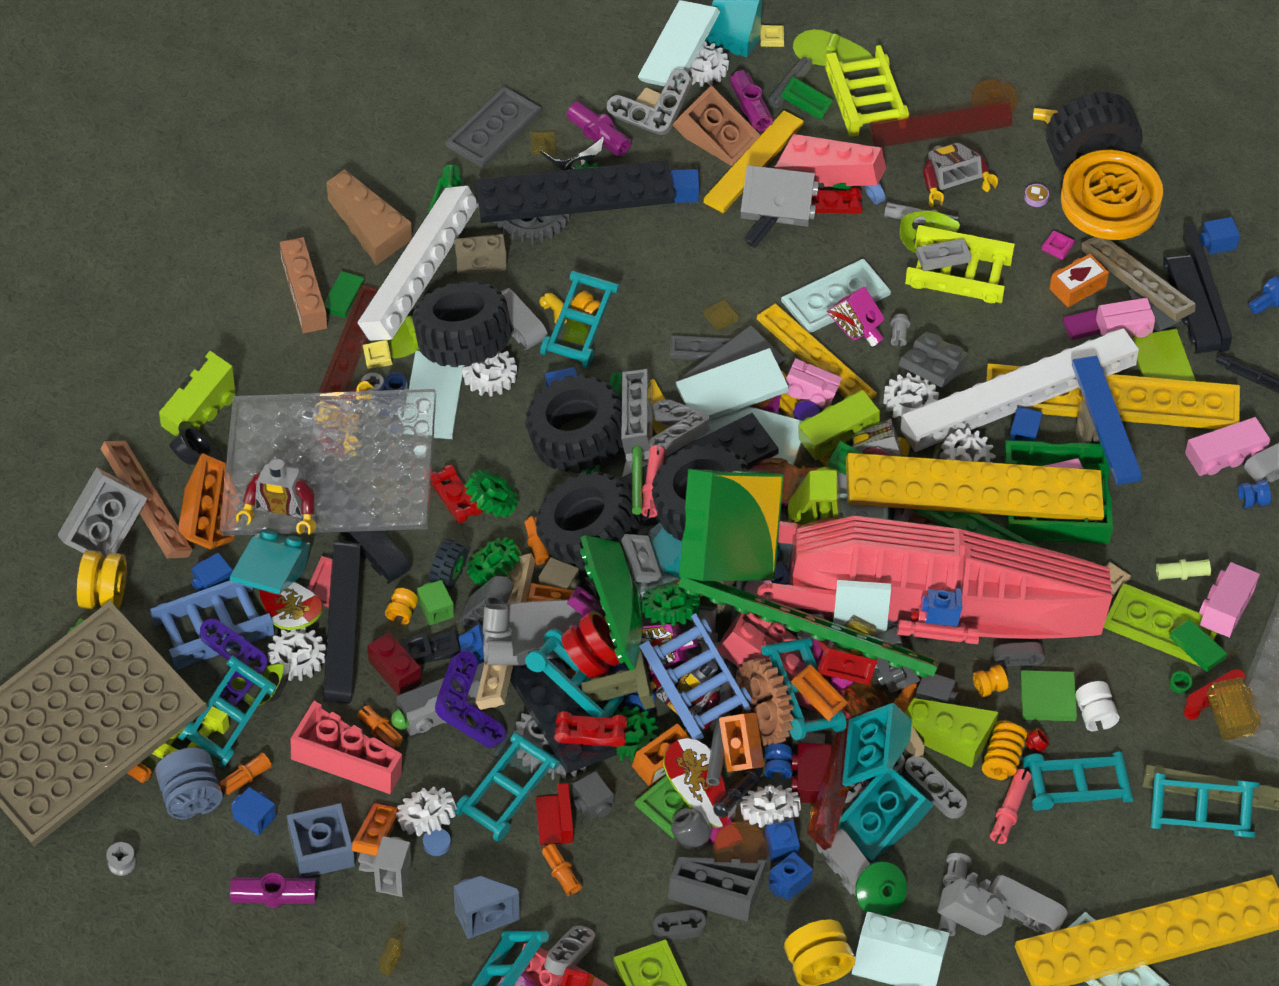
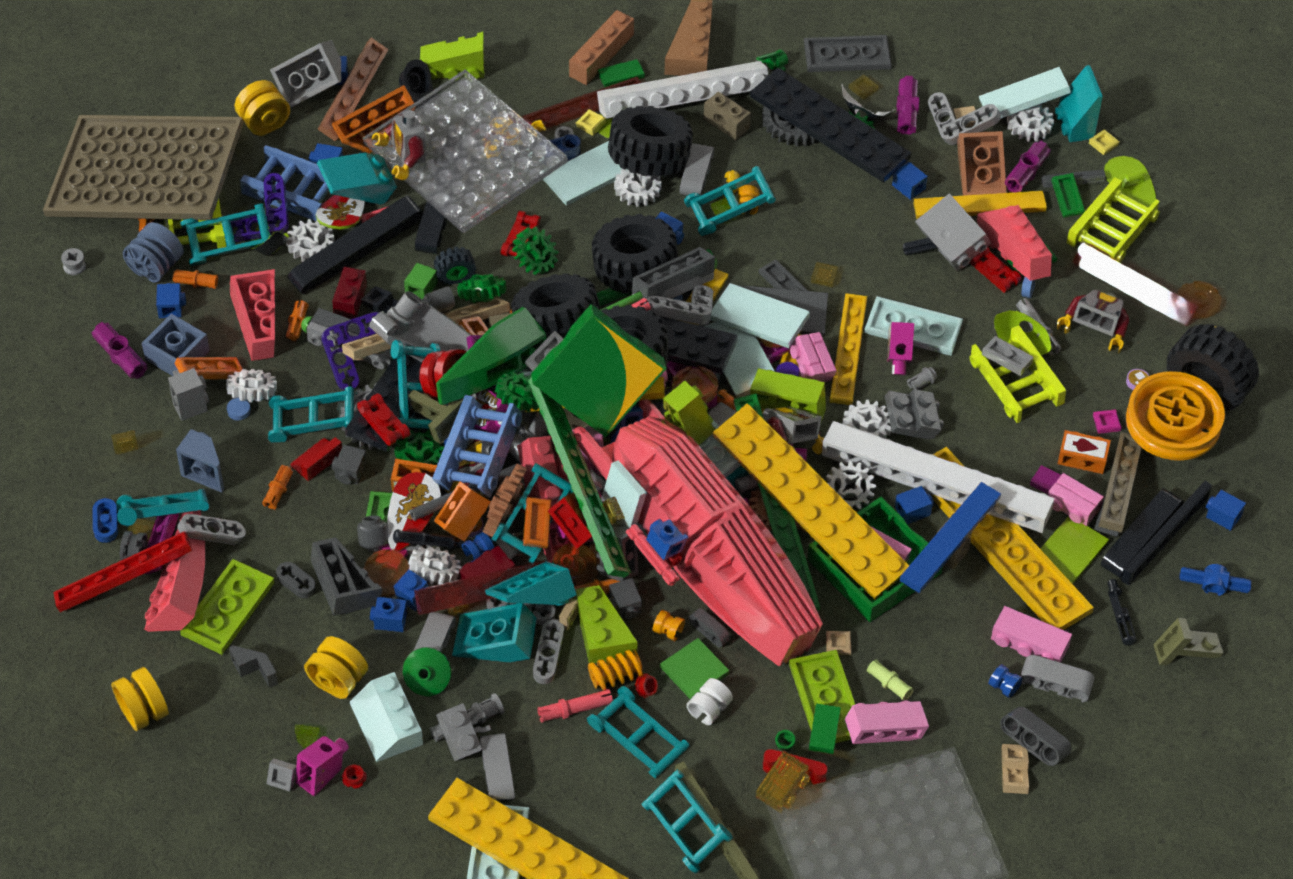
camera: 50 degrees right, 0 degrees up
(402, 603) = (400, 267): light orange wheel -> none

